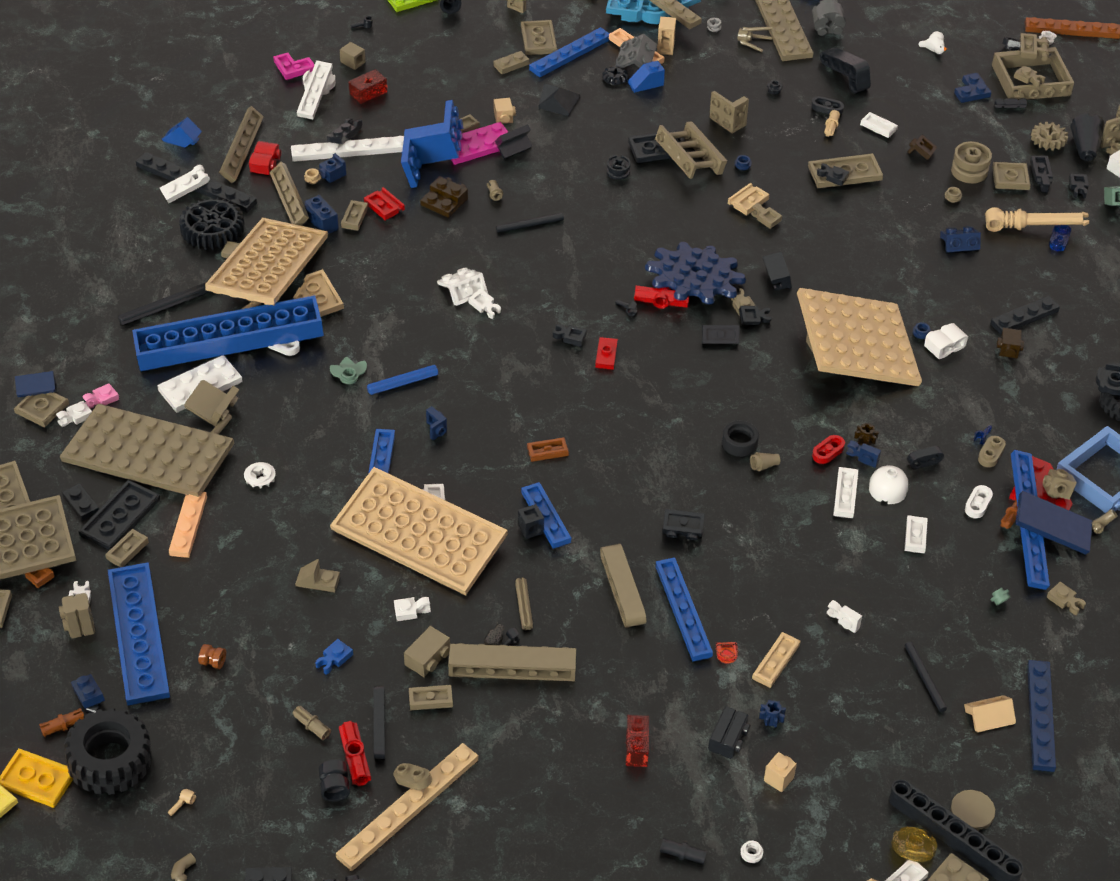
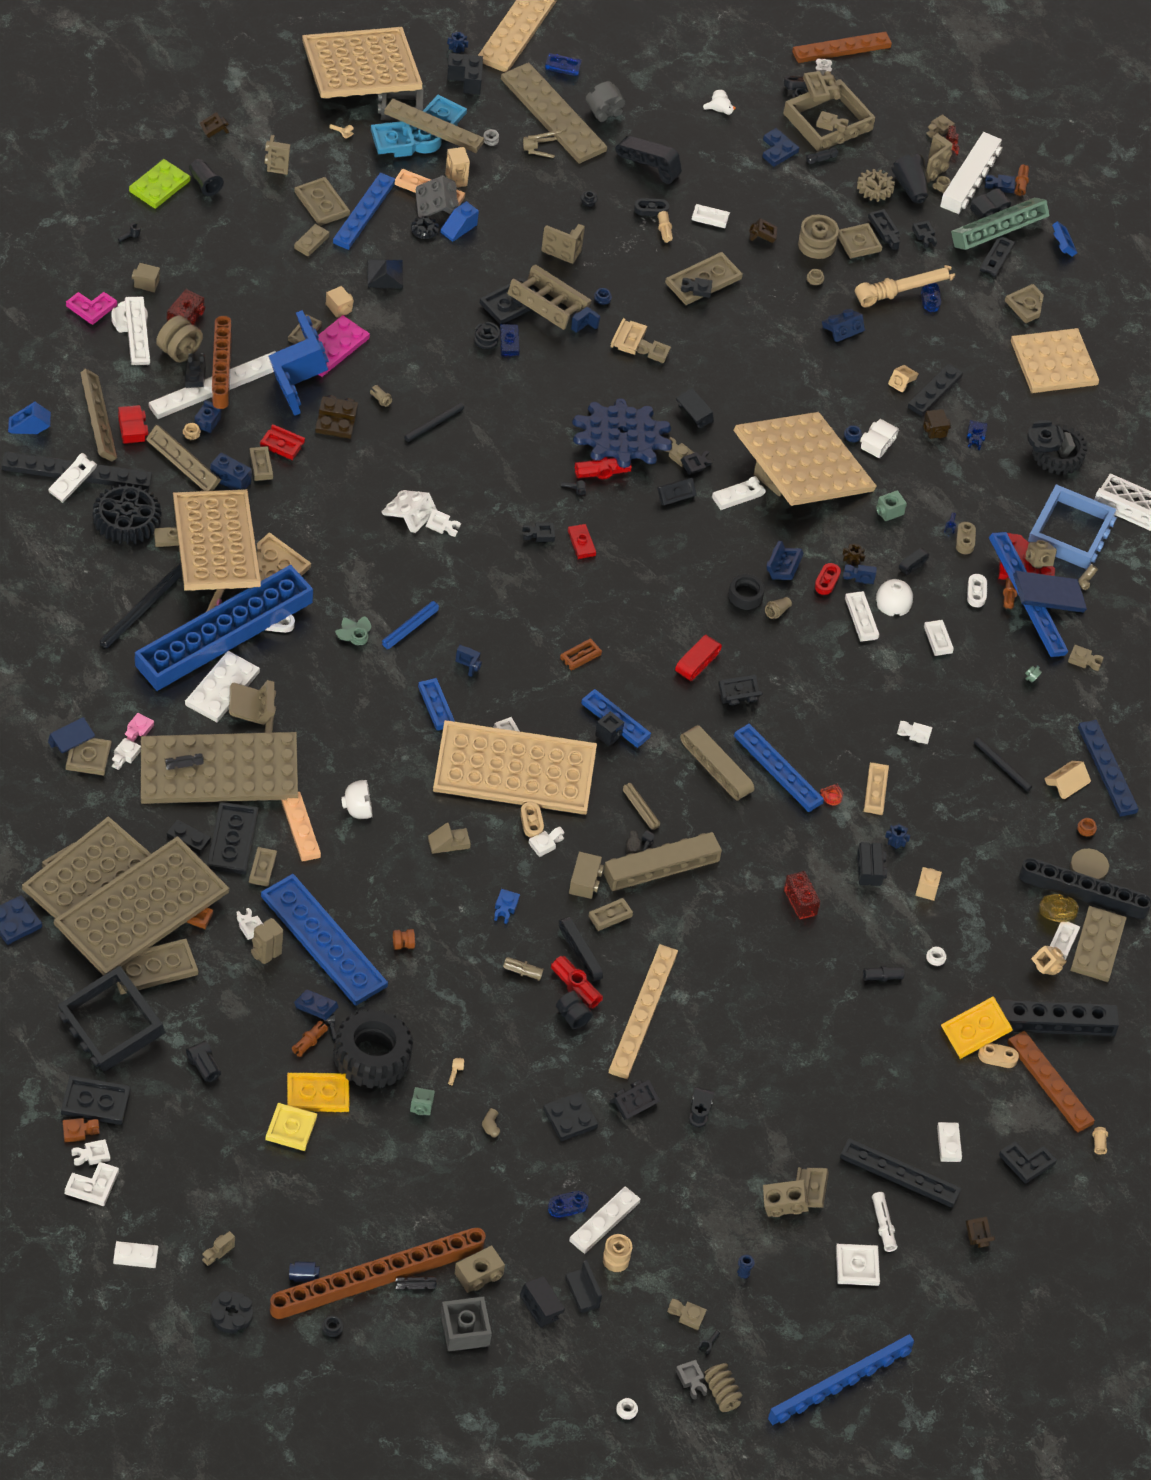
camera: 30 degrees left, 5 degrees up
(114, 433) = (184, 761): none -> black axle
(128, 822) = (422, 1101): none -> sand green bracket
(251, 513) = (358, 800): none -> white cylinder
(256, 470) = (344, 756): white gear -> none
(344, 102) = (179, 338): none -> dark tan wheel
(367, 129) = (221, 362): none -> dark orange beam
(407, 585) = (531, 821): none -> tan plate
(412, 776) = (636, 985): dark tan plate -> none
(514, 141) = (371, 335): black panel -> none
(638, 176) = (509, 339): none -> clear blue plate
(658, 483) = (698, 657): none -> red beam
(713, 175) = (584, 318): none -> dark blue bracket
(781, 352) = (738, 493): none -> white plate
(791, 421) = (784, 562): none -> dark blue bracket
(927, 401) = (891, 505): none -> sand green brick
(988, 768) = (1087, 827): none -> dark orange plate
(996, 294) = (901, 377): none -> tan bracket
(1049, 362) = (976, 433): none -> clear blue plate

